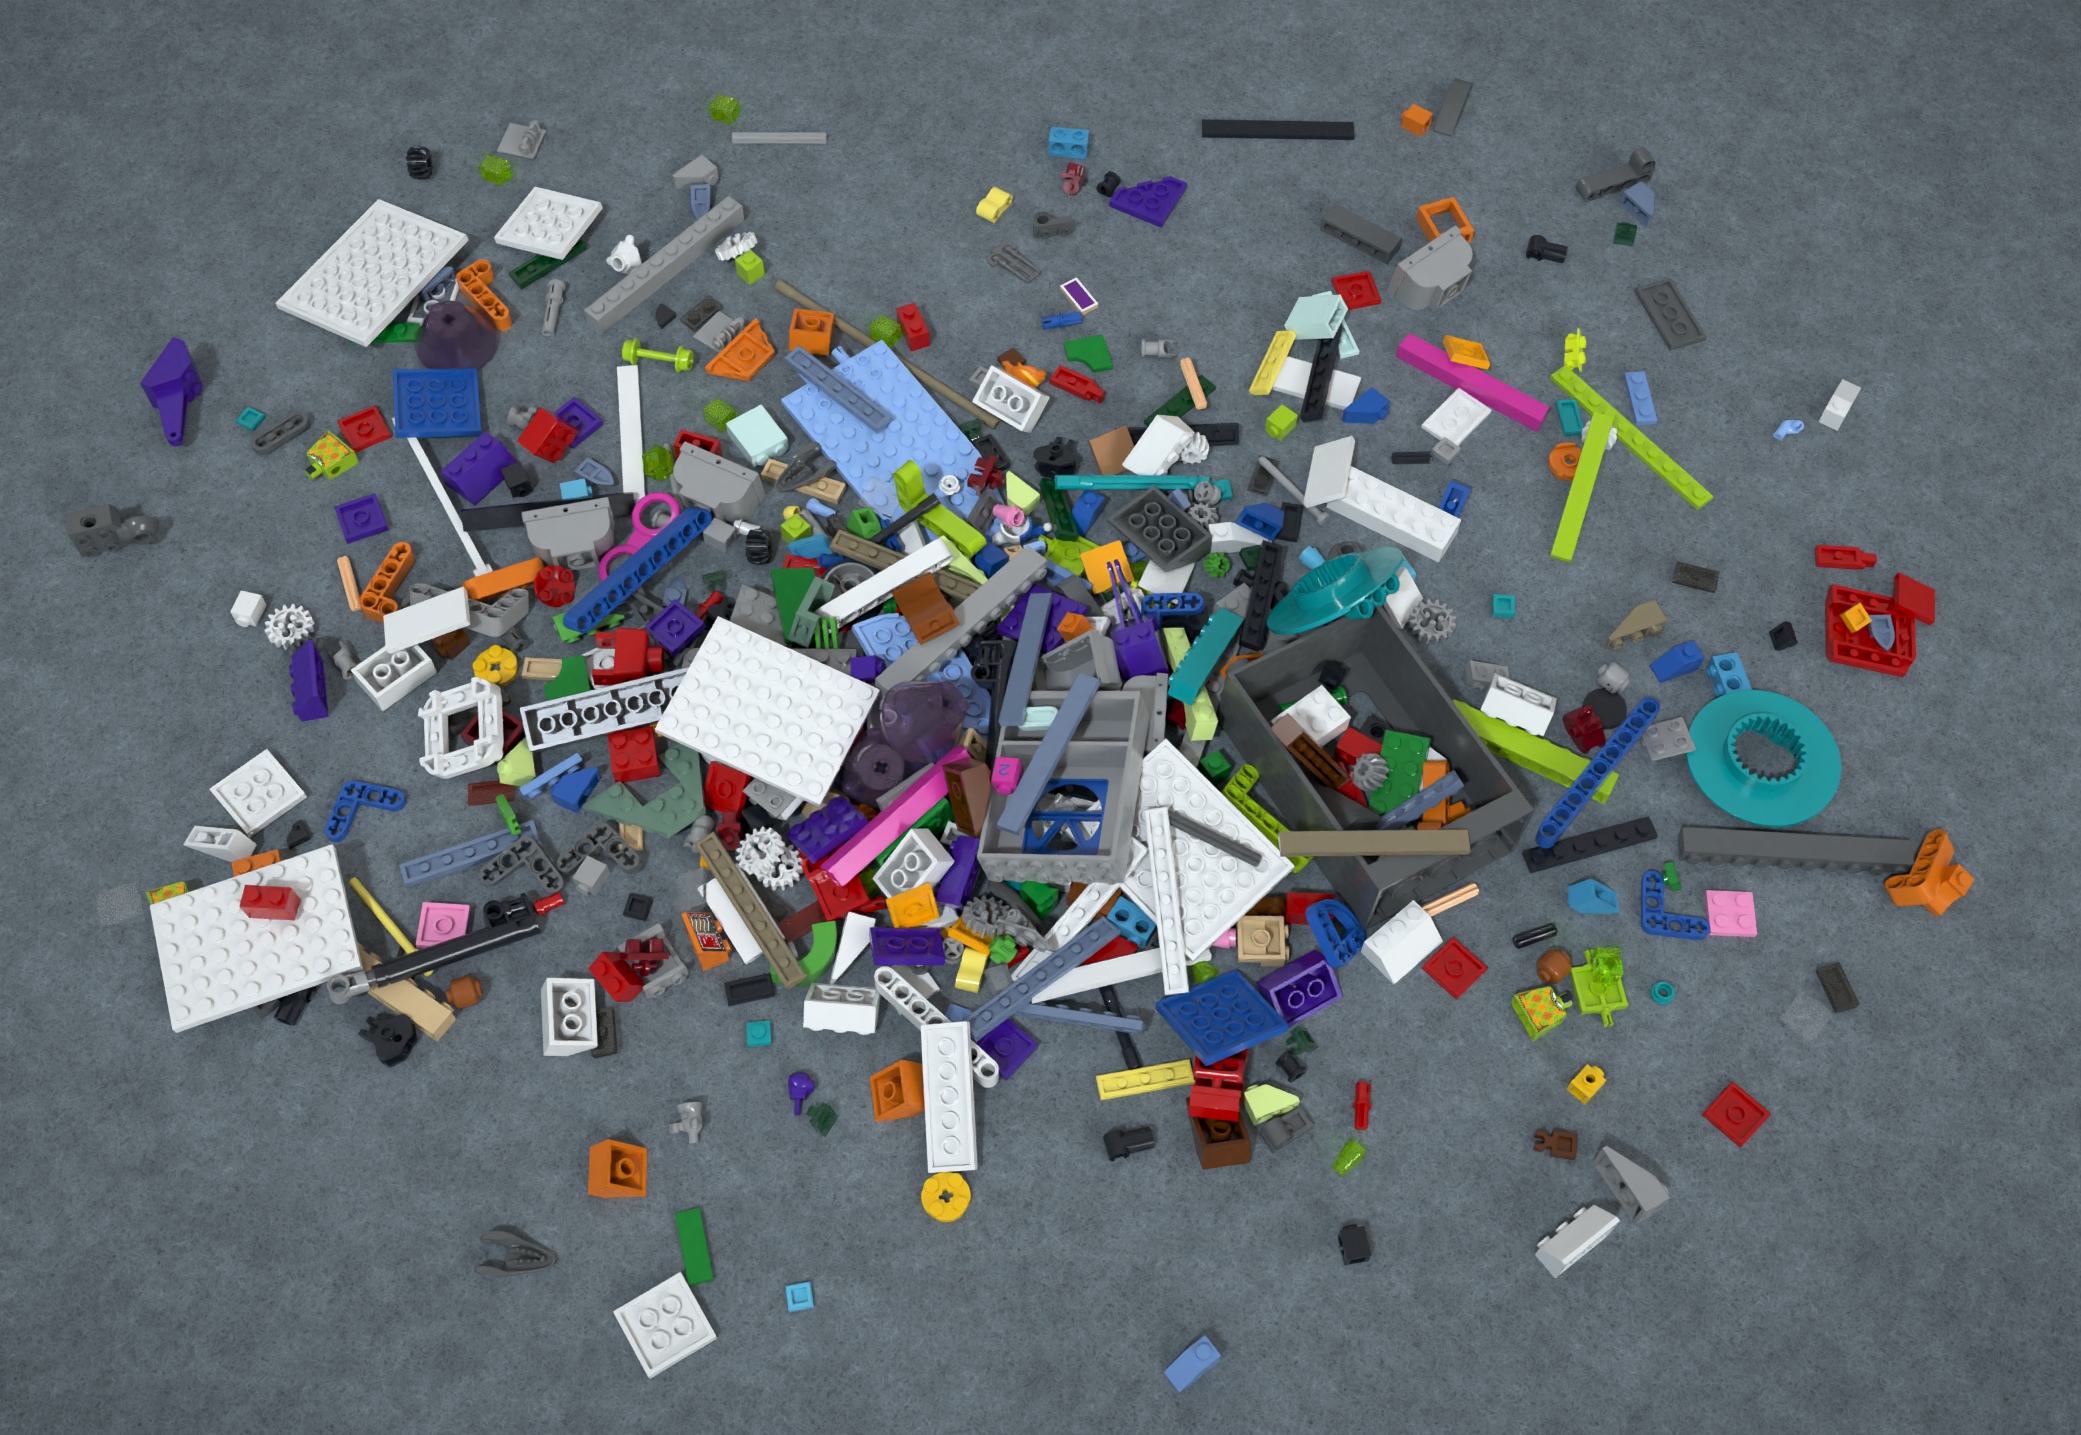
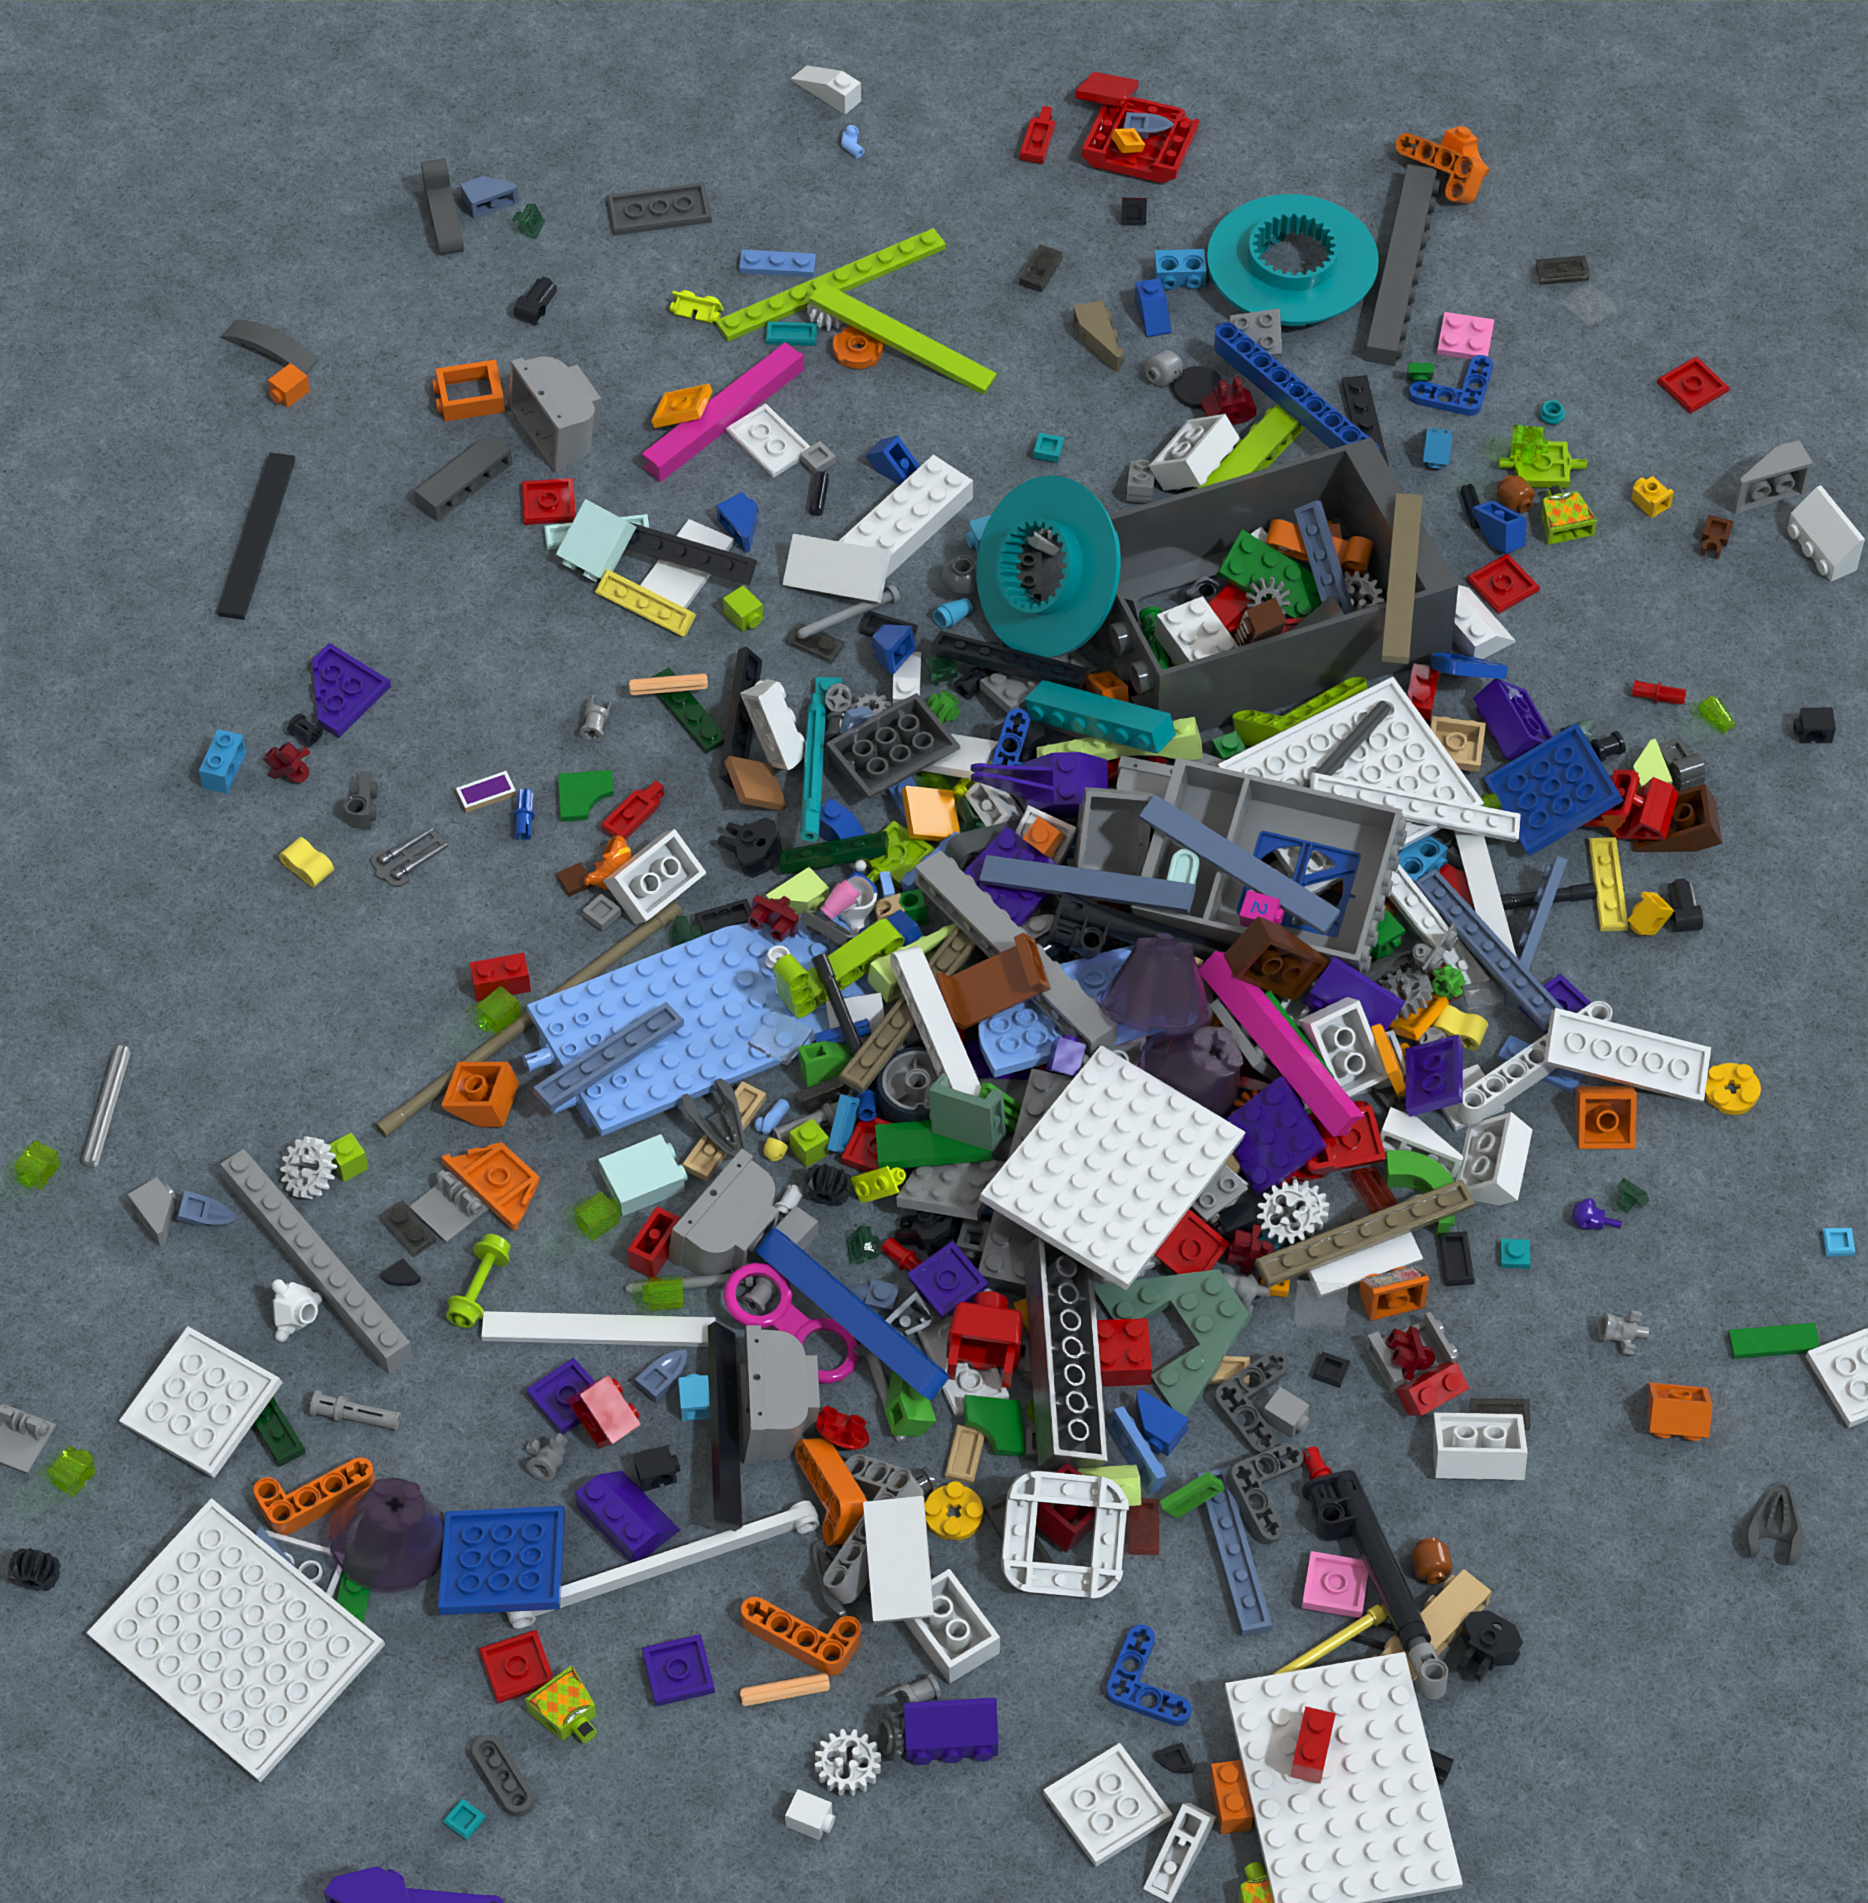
camera: 80 degrees left, 5 degrees down
(761, 577) = (878, 1183): none -> neon yellow hinge
(1110, 1111) = (1649, 914): none -> yellow brick
(1512, 955) = (1501, 526): none -> blue slope

